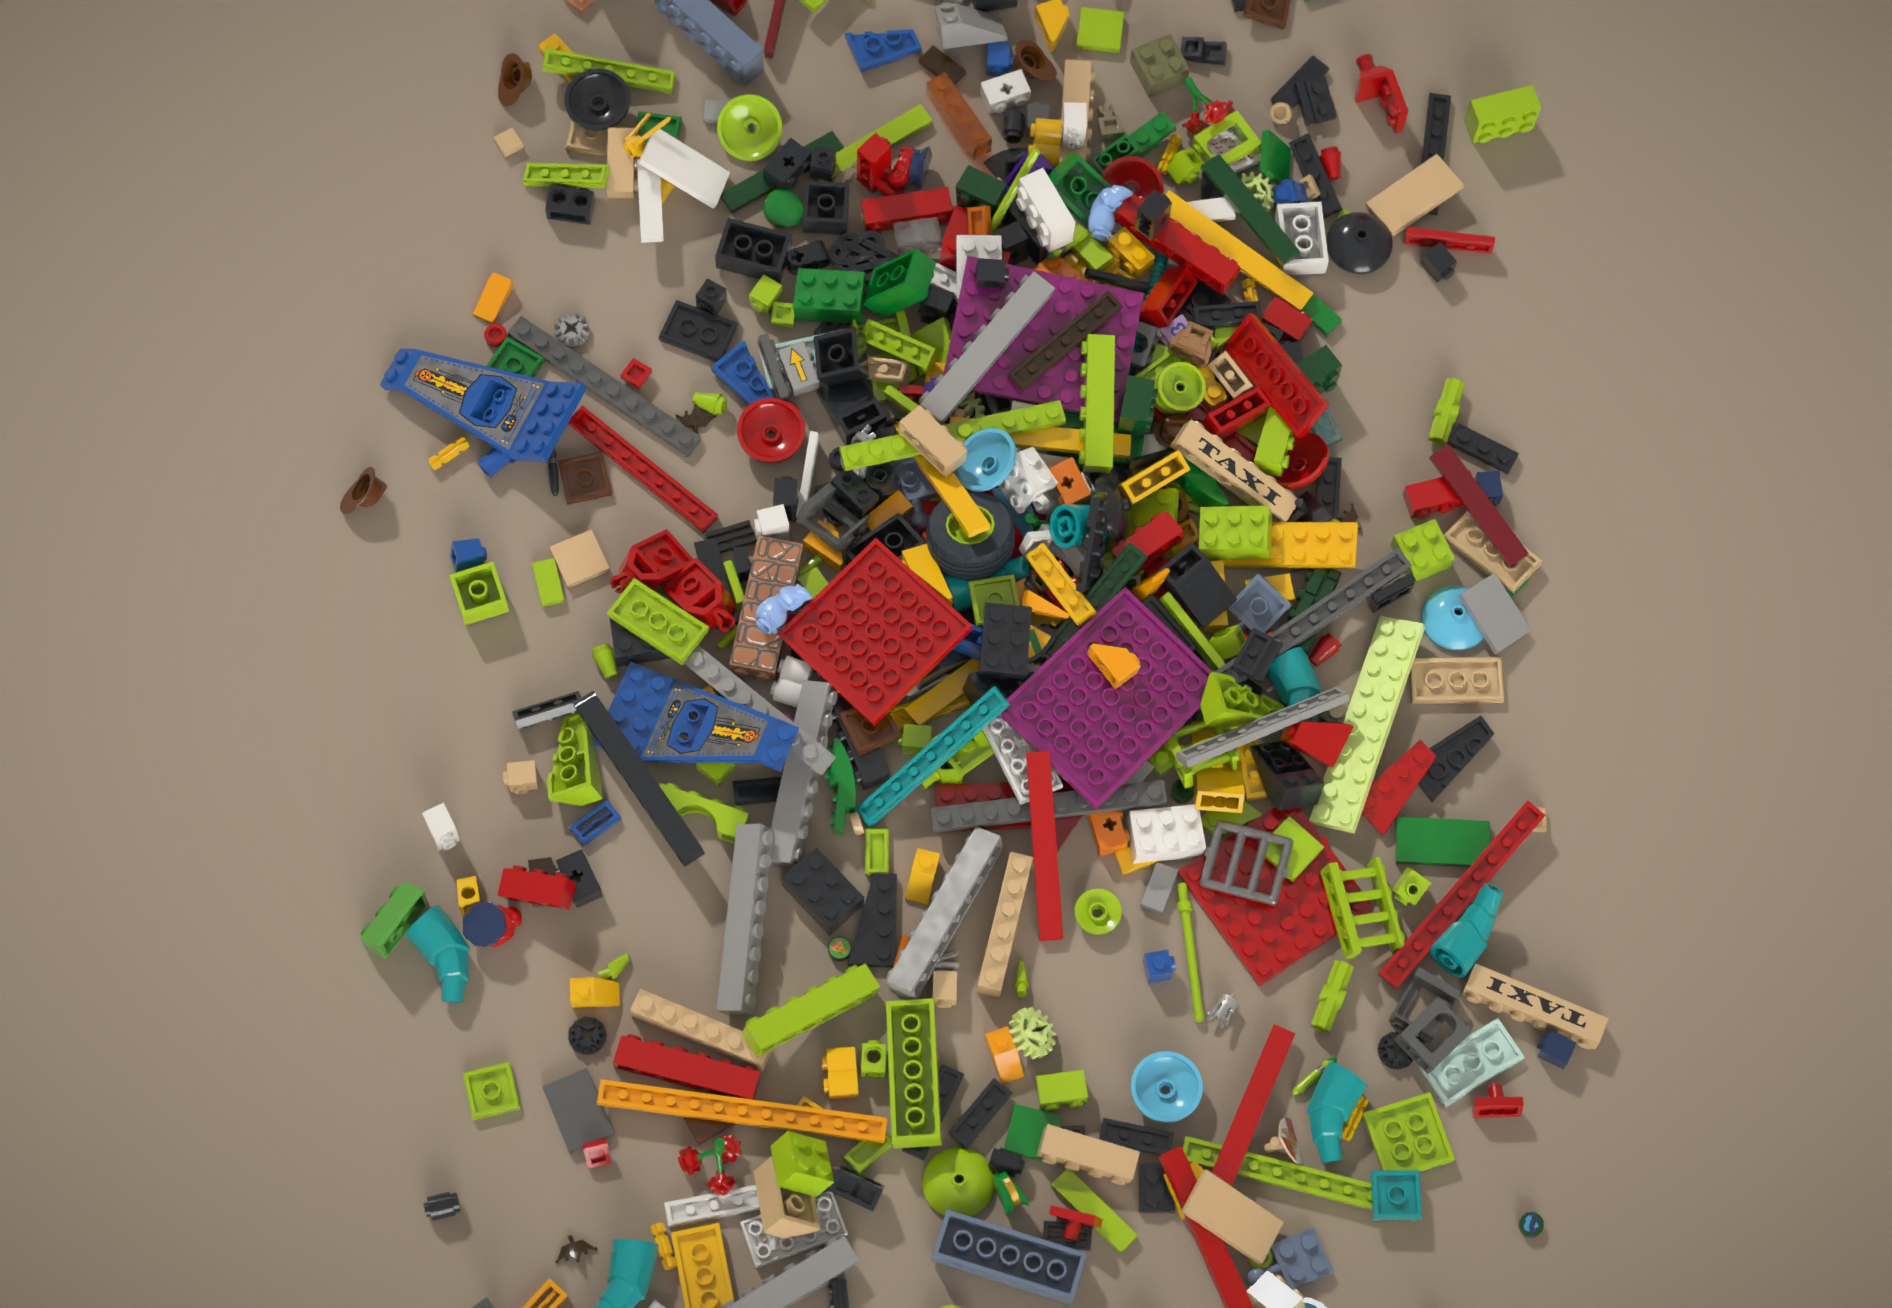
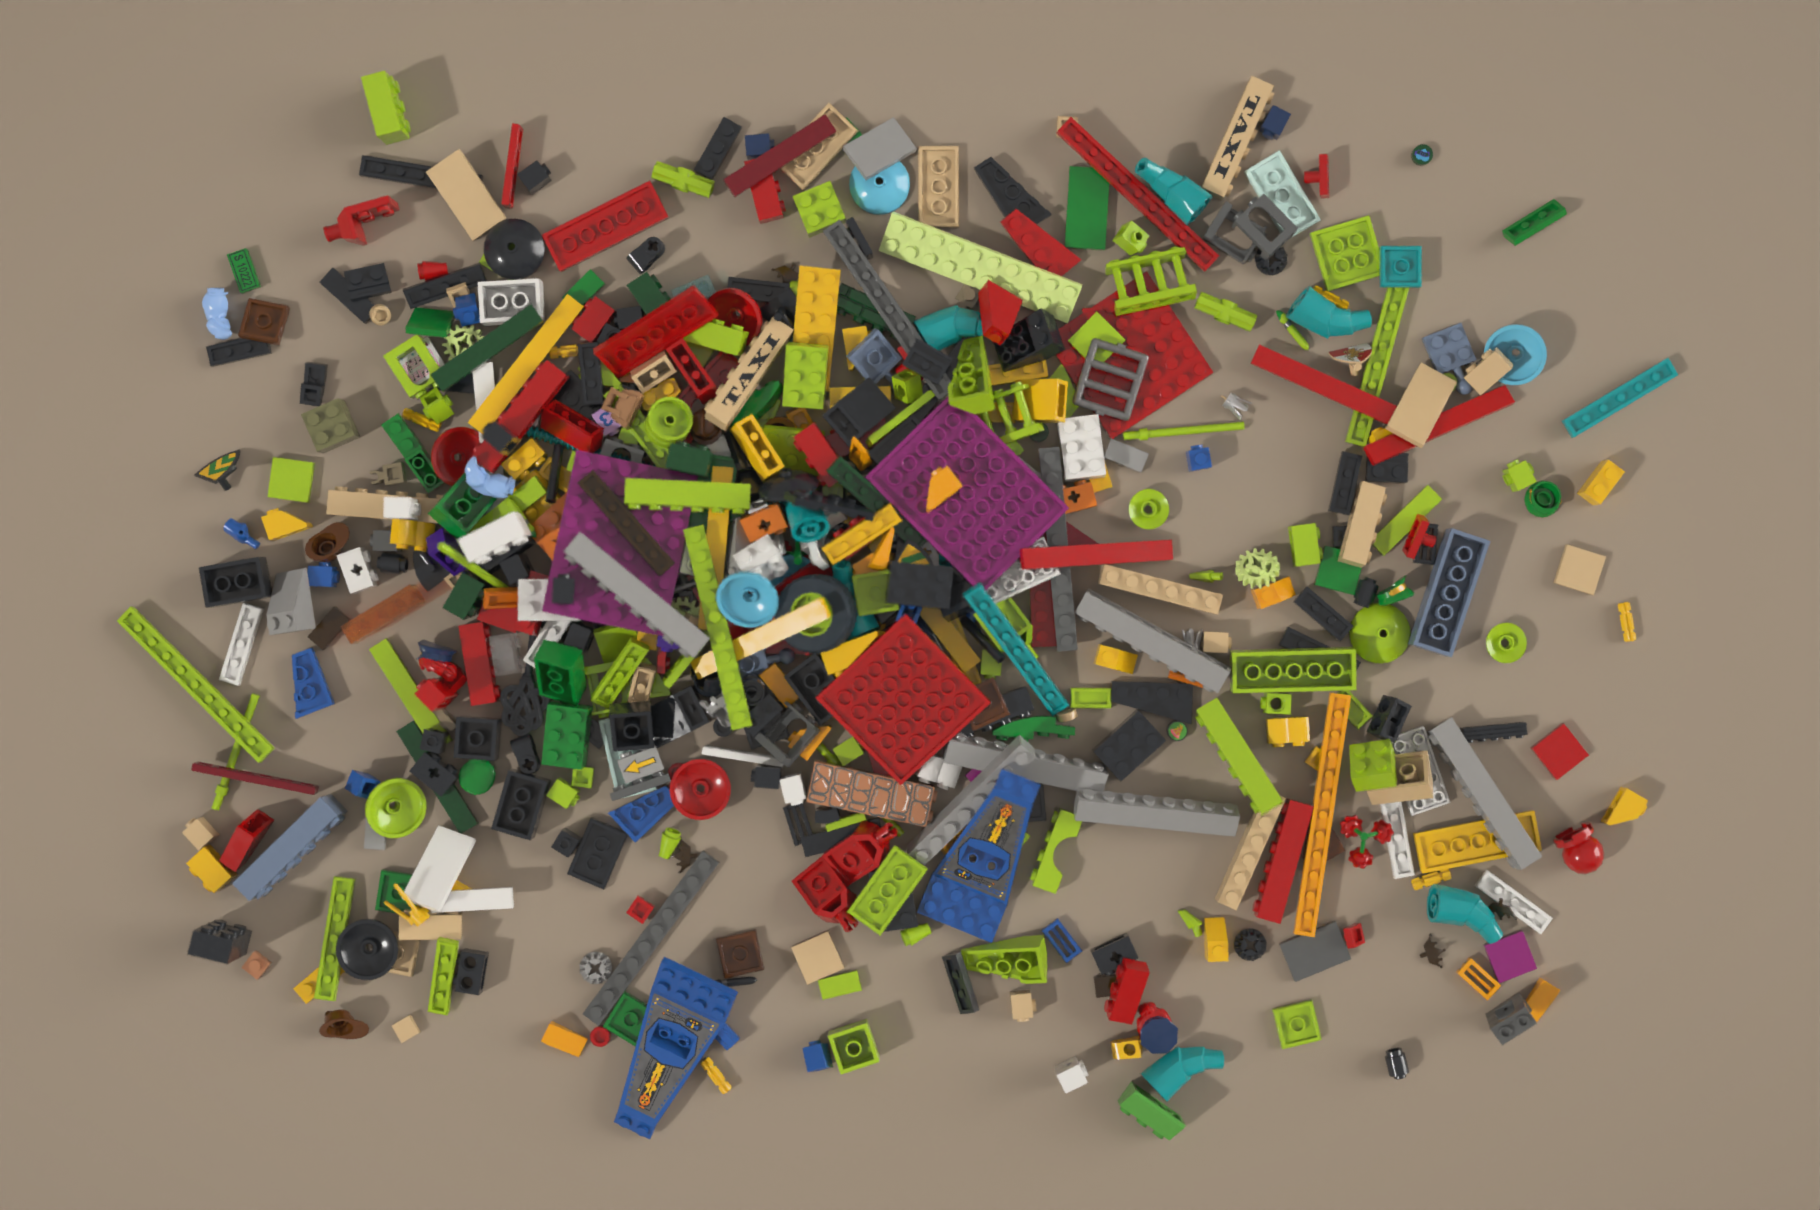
camera: 80 degrees left, 20 degrees up
(363, 492) = (755, 1150): reddish brown piece -> none
(639, 778) = (1031, 905): black beam -> none
(643, 469) = (732, 902): red tile -> none
(773, 610) = (882, 788): light blue animal -> none
(776, 93) = (361, 783): none -> blue brick
(926, 737) = (982, 639): none -> black piece
(933, 441) = (729, 646): tan brick -> none
(1035, 584) = (861, 556): black bush -> none
(1169, 1071) = (1320, 456): medium azure dish -> none
(1215, 111) = (387, 375): red plant -> none
(1262, 727) = (995, 359): light grey tile -> none
(1325, 648) = (910, 301): red cone -> none
(1361, 375) = (644, 256): none -> black piece
(1390, 334) = (605, 226): none -> red plate

